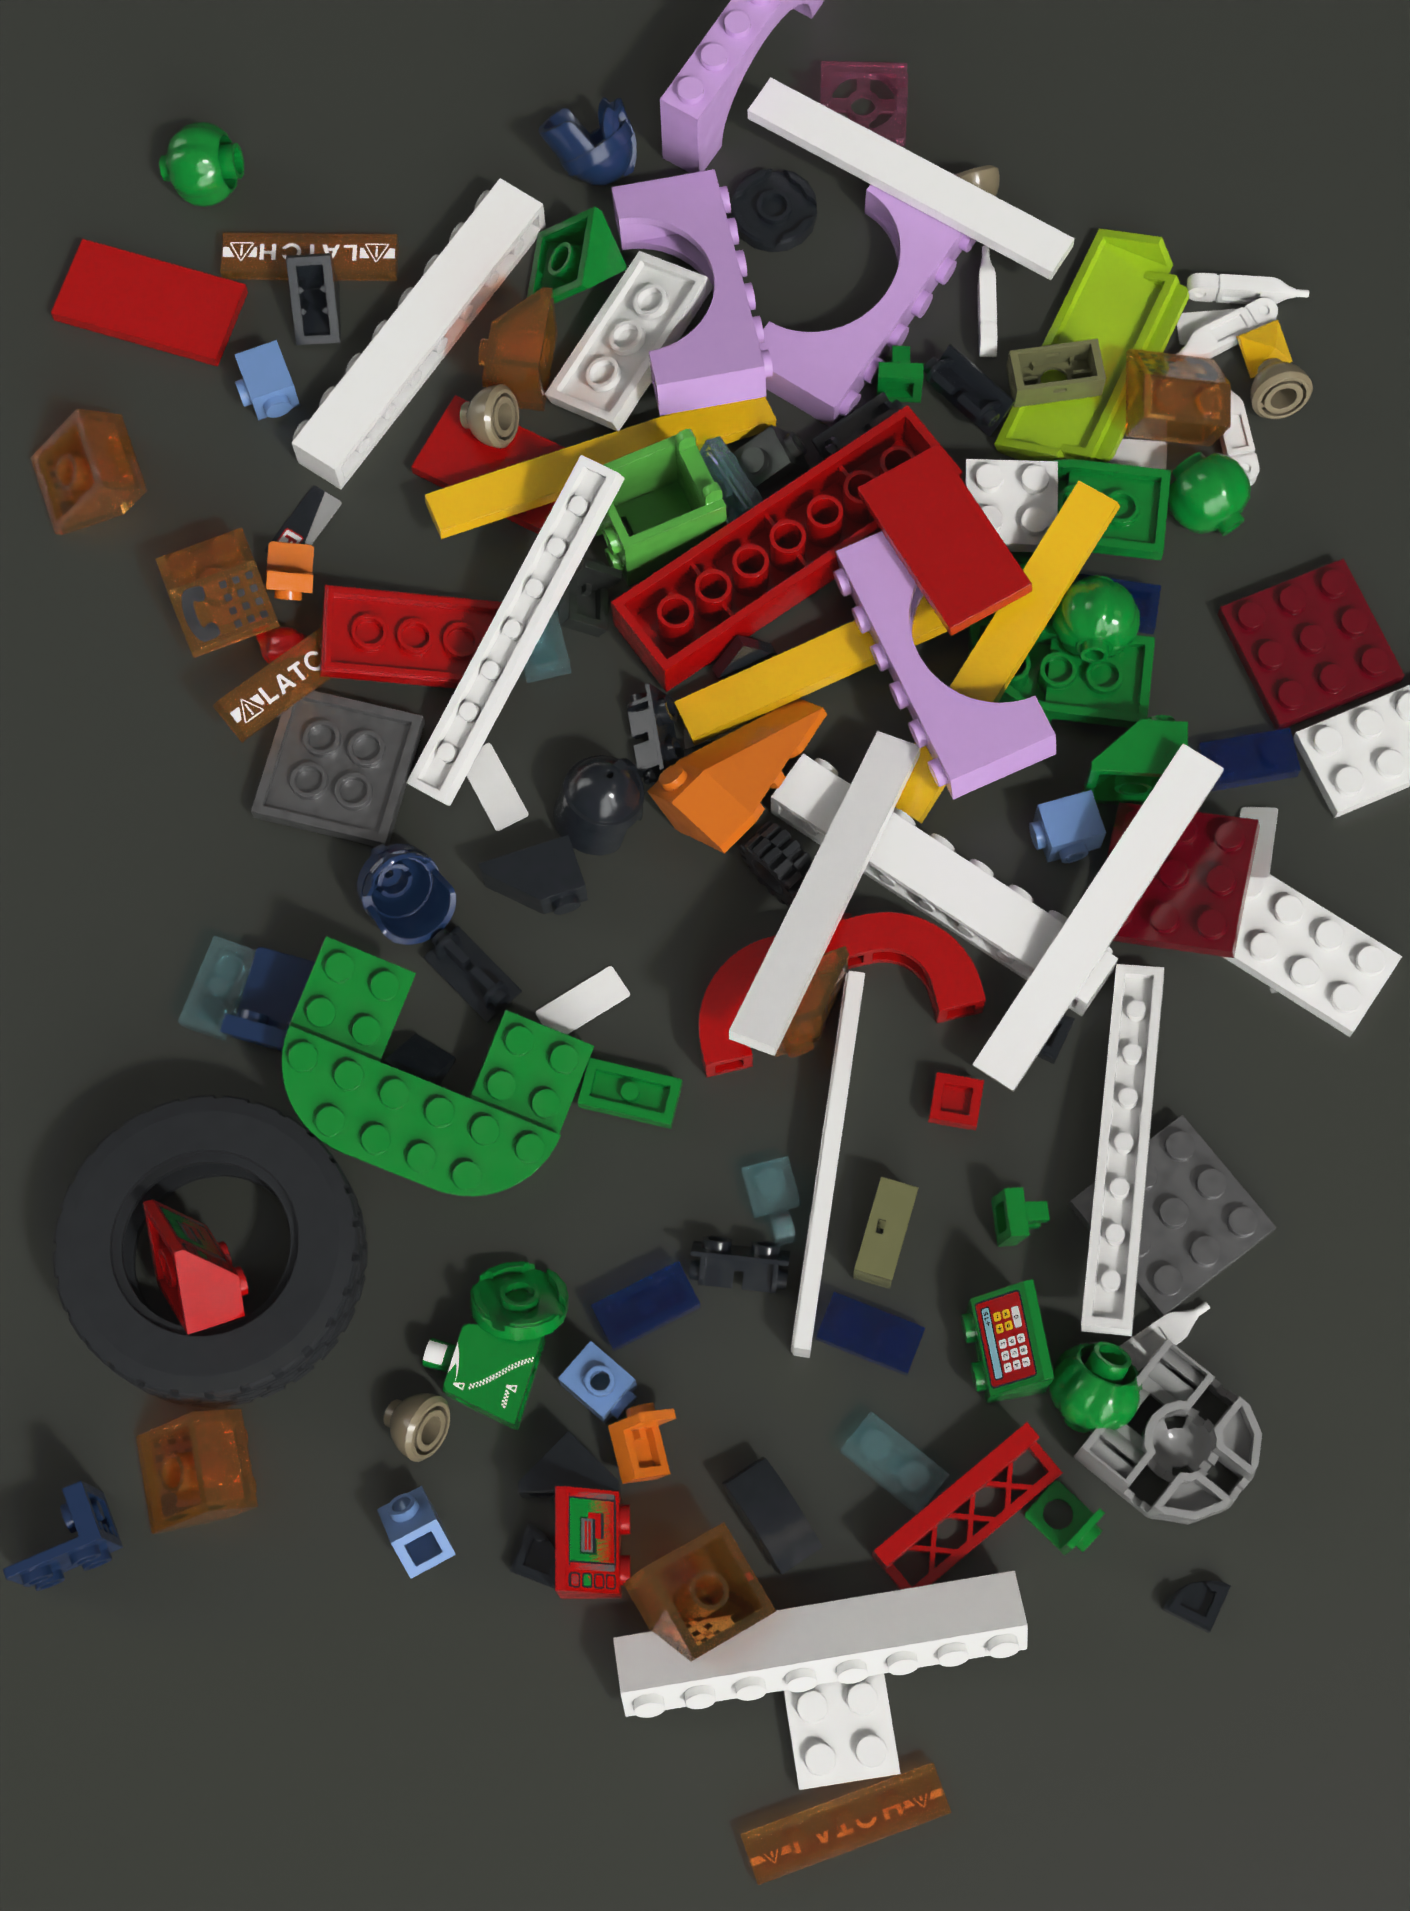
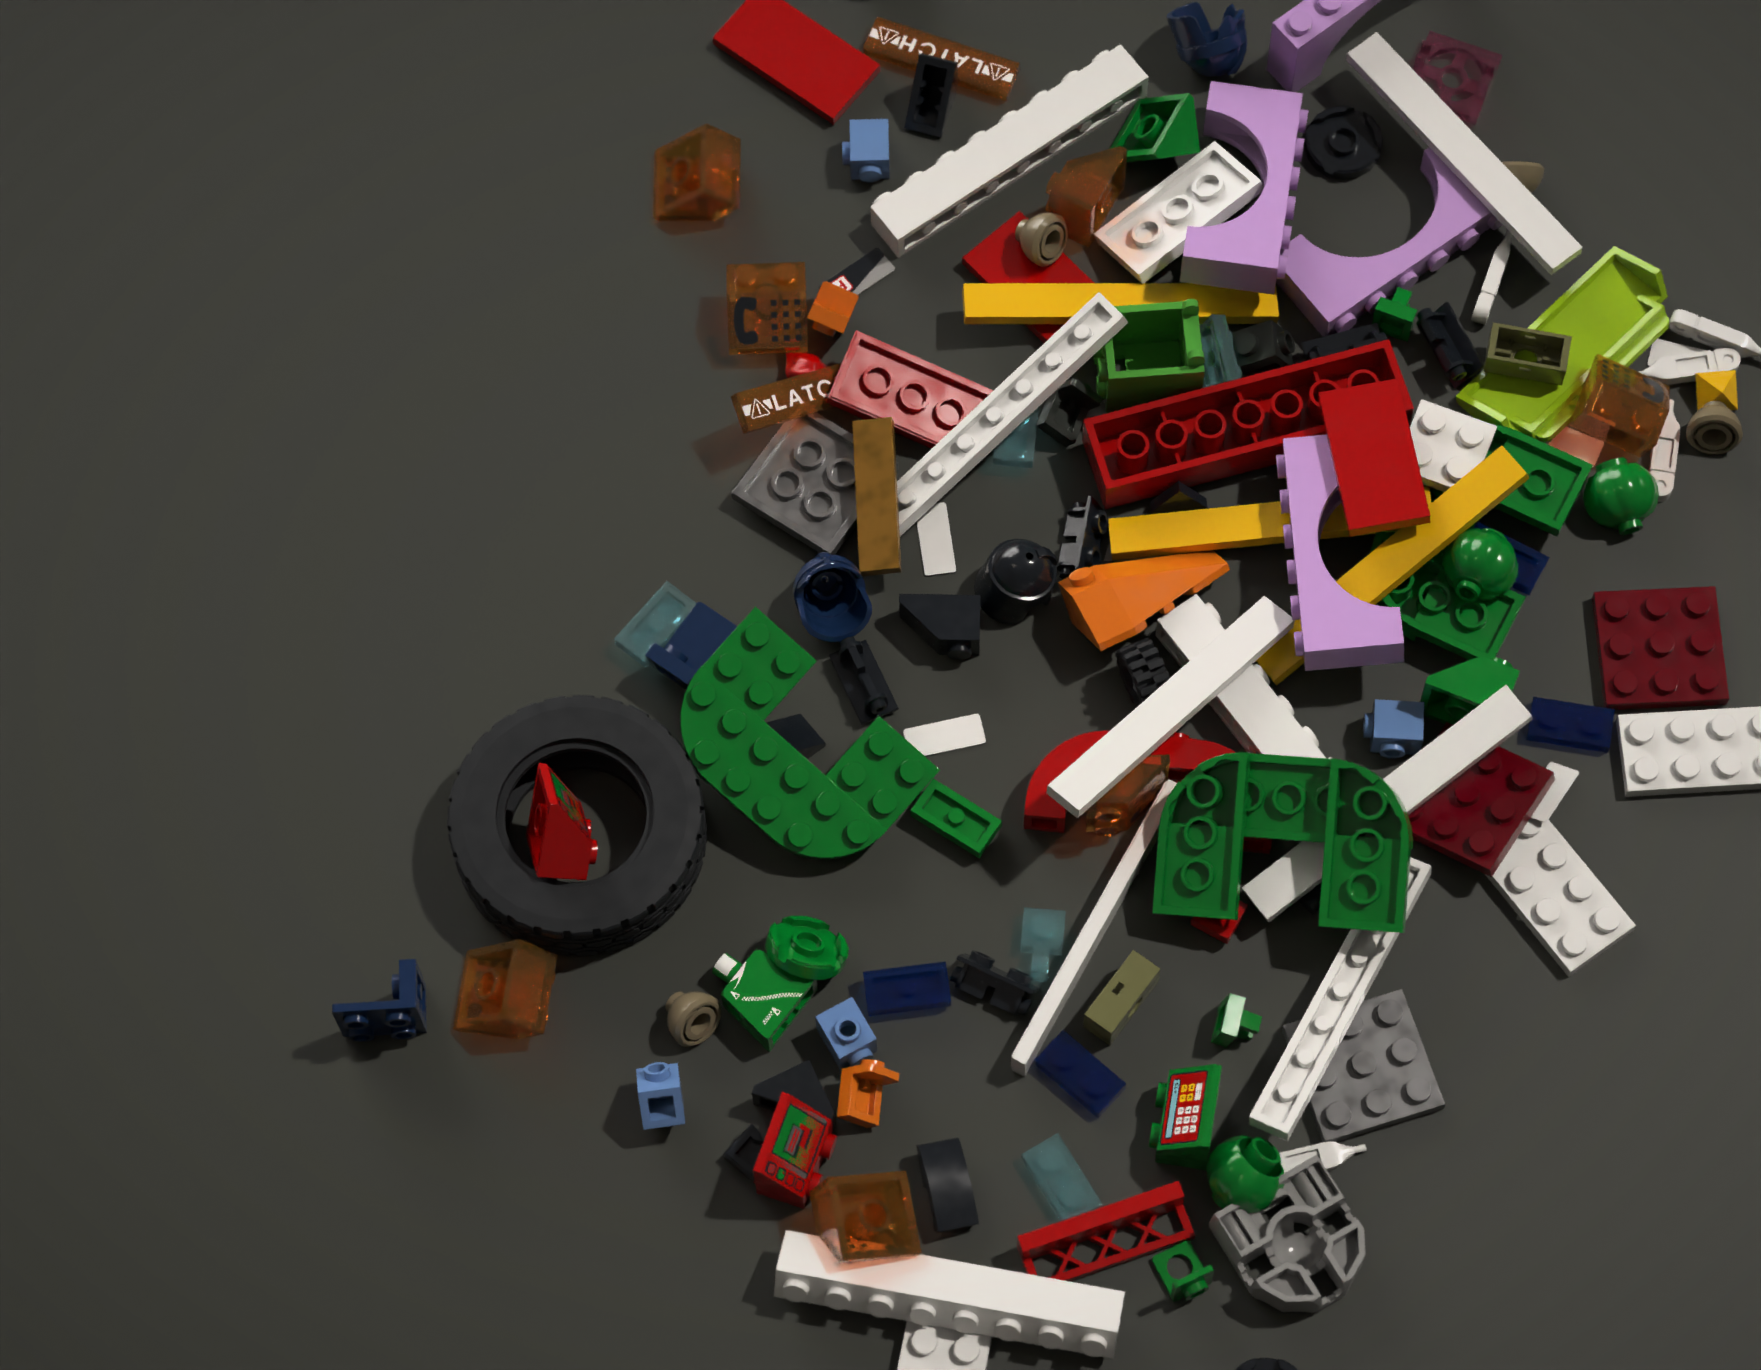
camera: 20 degrees right, 5 degrees down
(414, 763) = (876, 496): none -> pearl gold tile
(993, 953) = (1285, 799): none -> green plate

